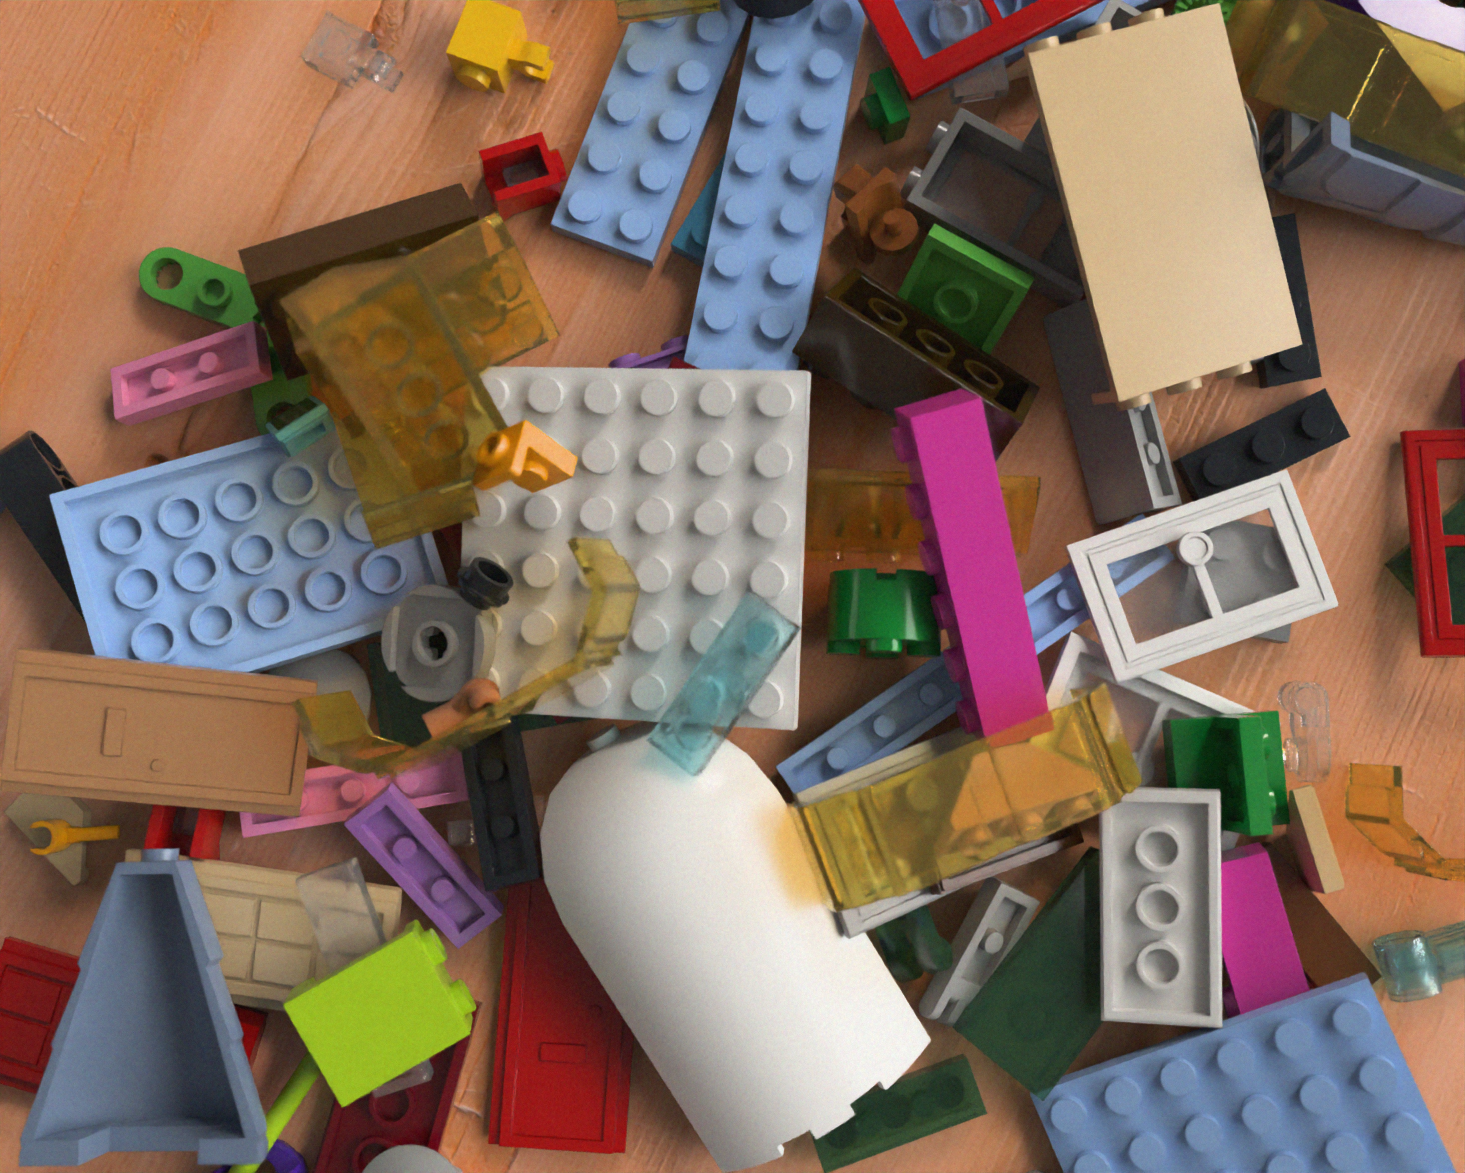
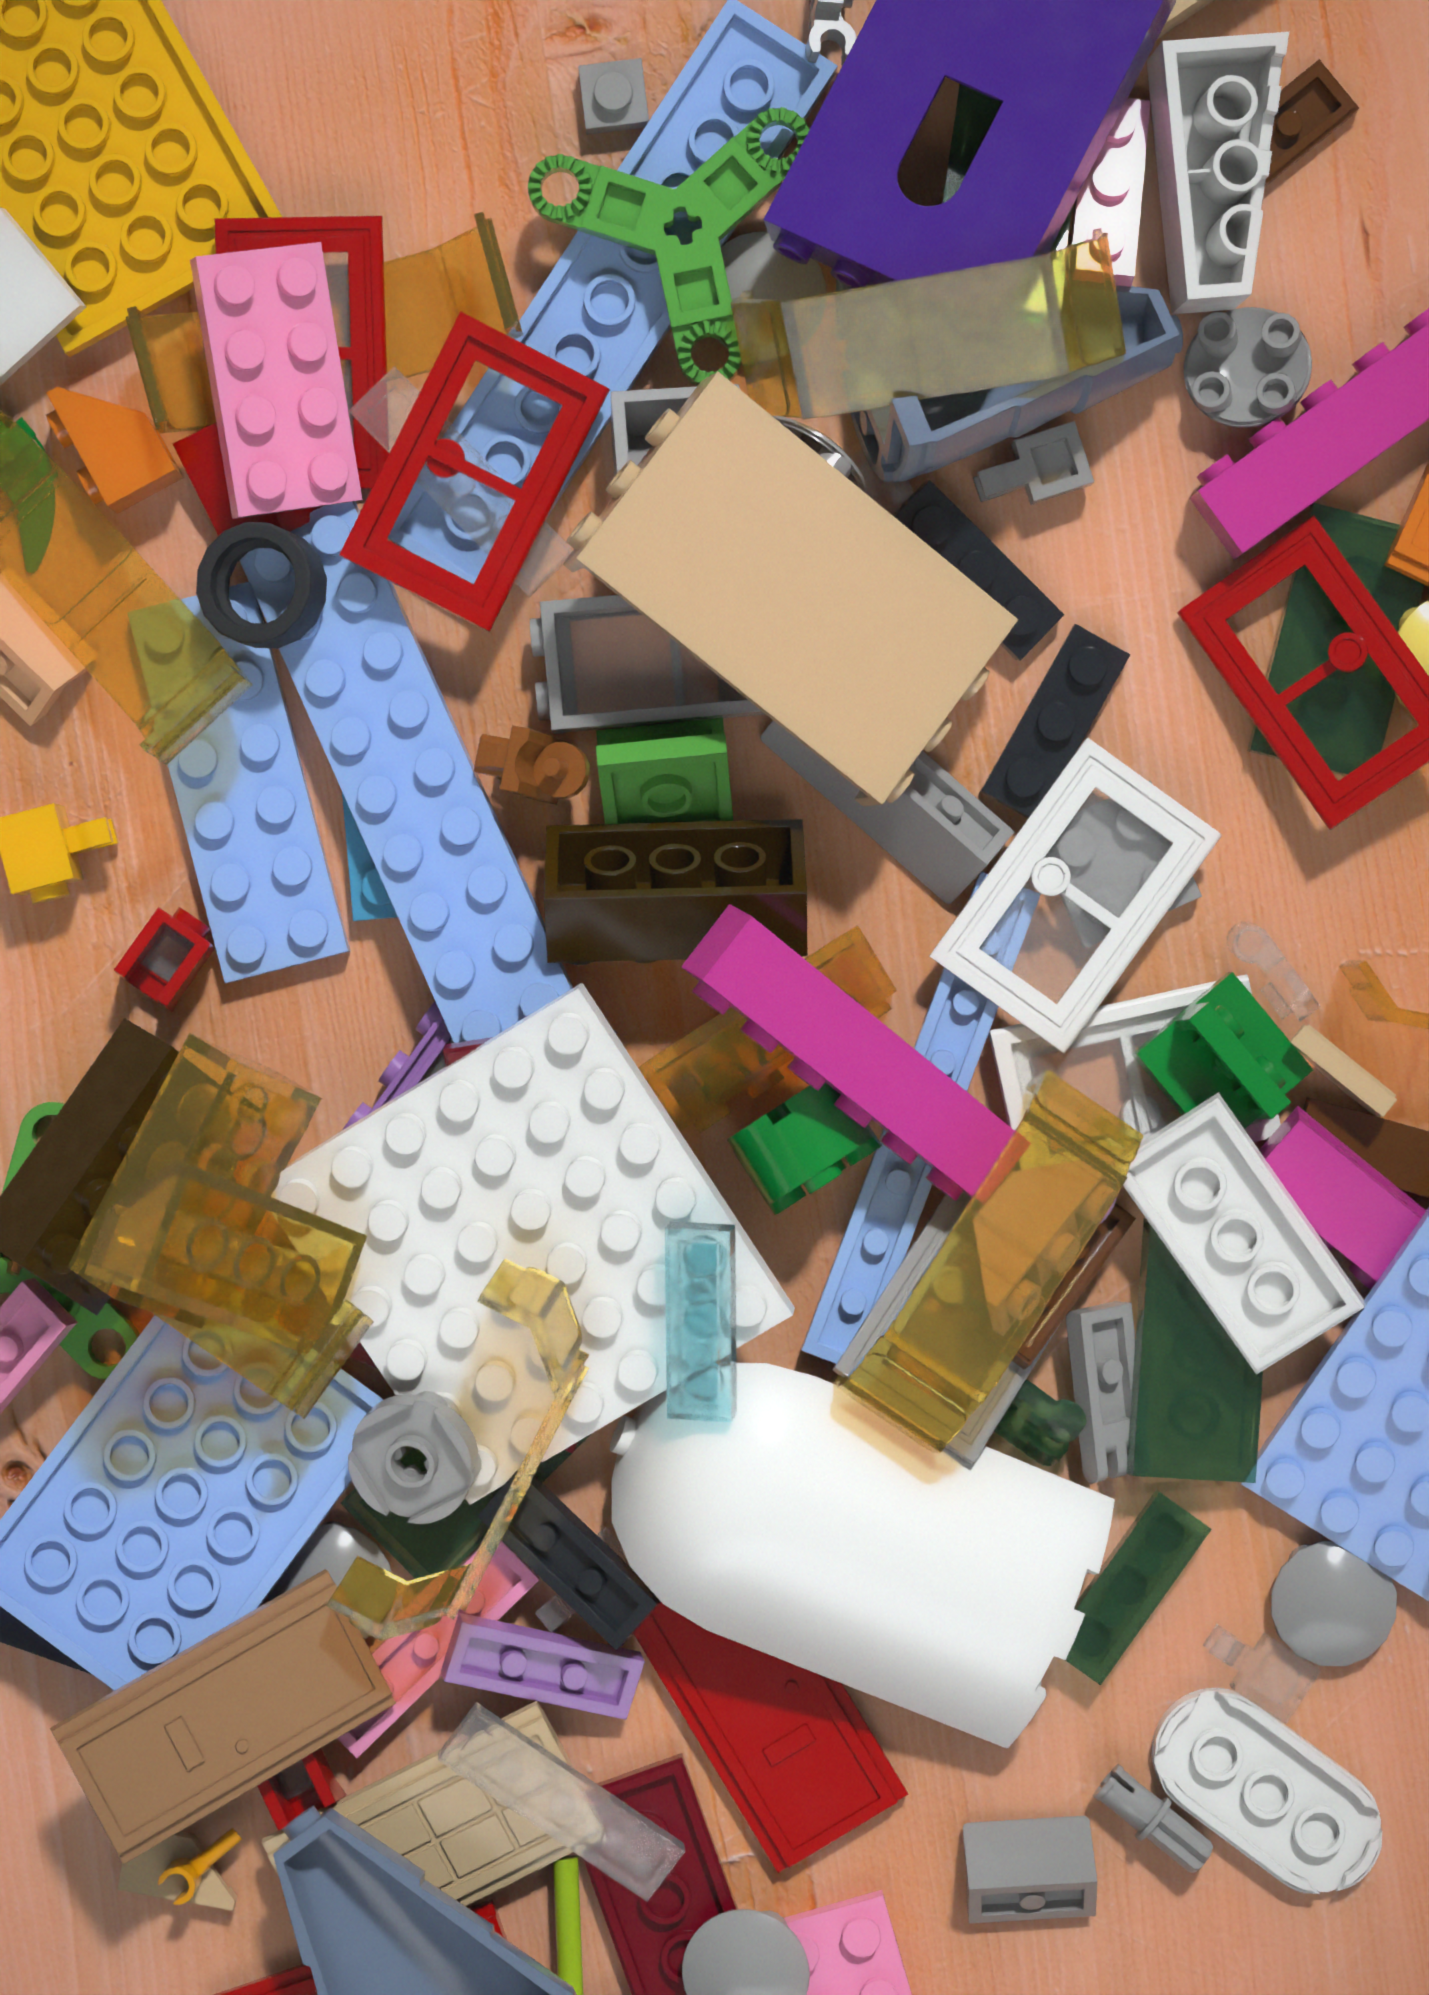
camera: 30 degrees left, 5 degrees up
(301, 426) = (134, 1346): slope -> none
(381, 1013) = (600, 1820): lime panel -> none
(469, 700) = (484, 1490): nougat arm -> none
(484, 584) = (419, 1377): black plate -> none
(523, 456) = (377, 1248): light orange bracket -> none
(884, 106) = (463, 643): green plate -> none
(1375, 263) = (1044, 464): none -> light grey plate

